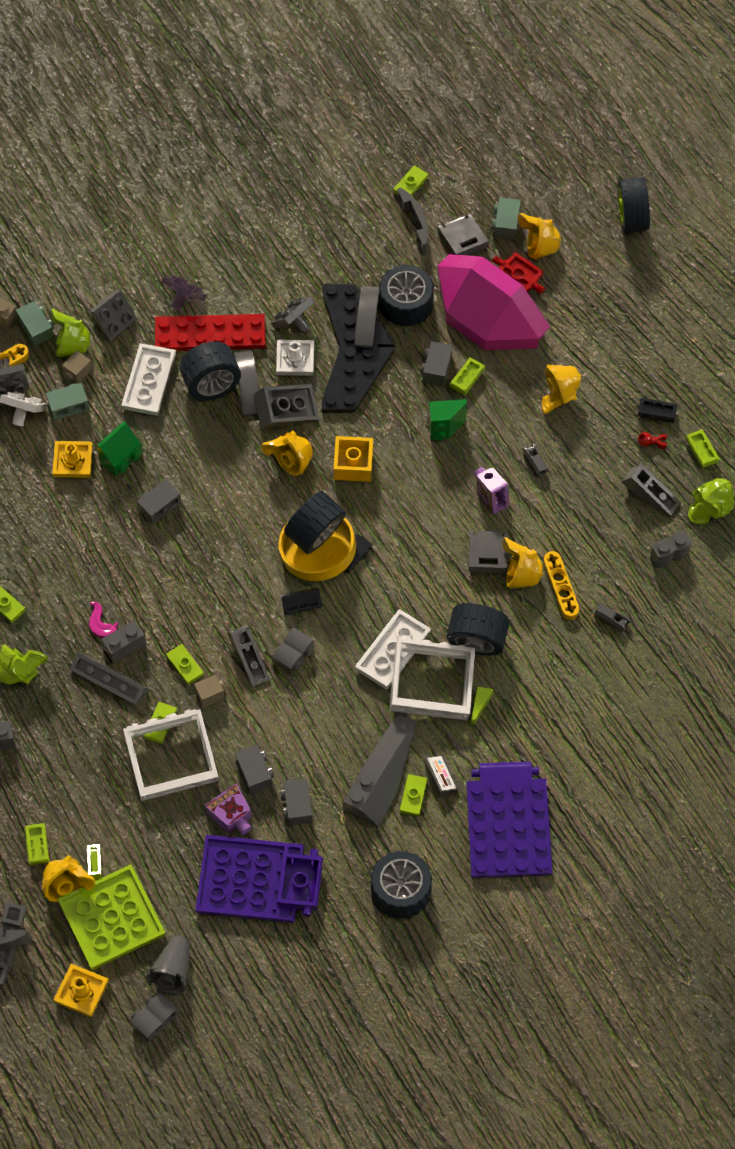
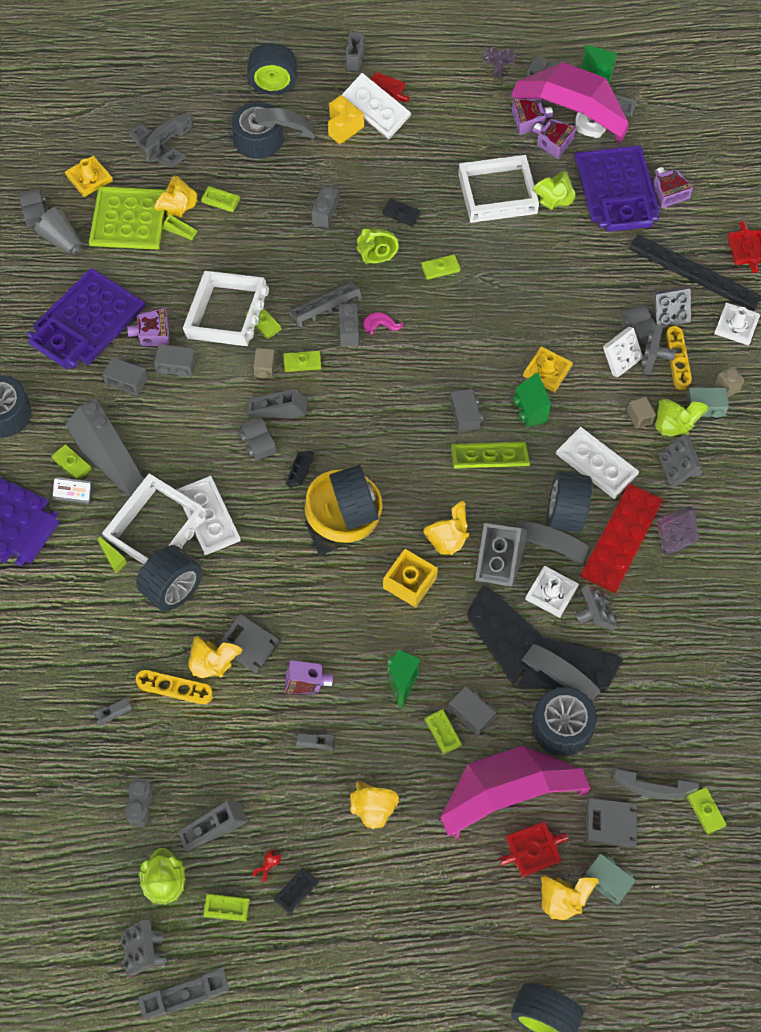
camera: 120 degrees right, 0 degrees up
(67, 401) = (609, 390): sand green brick -> none
(193, 461) = (489, 455): none -> lime slope

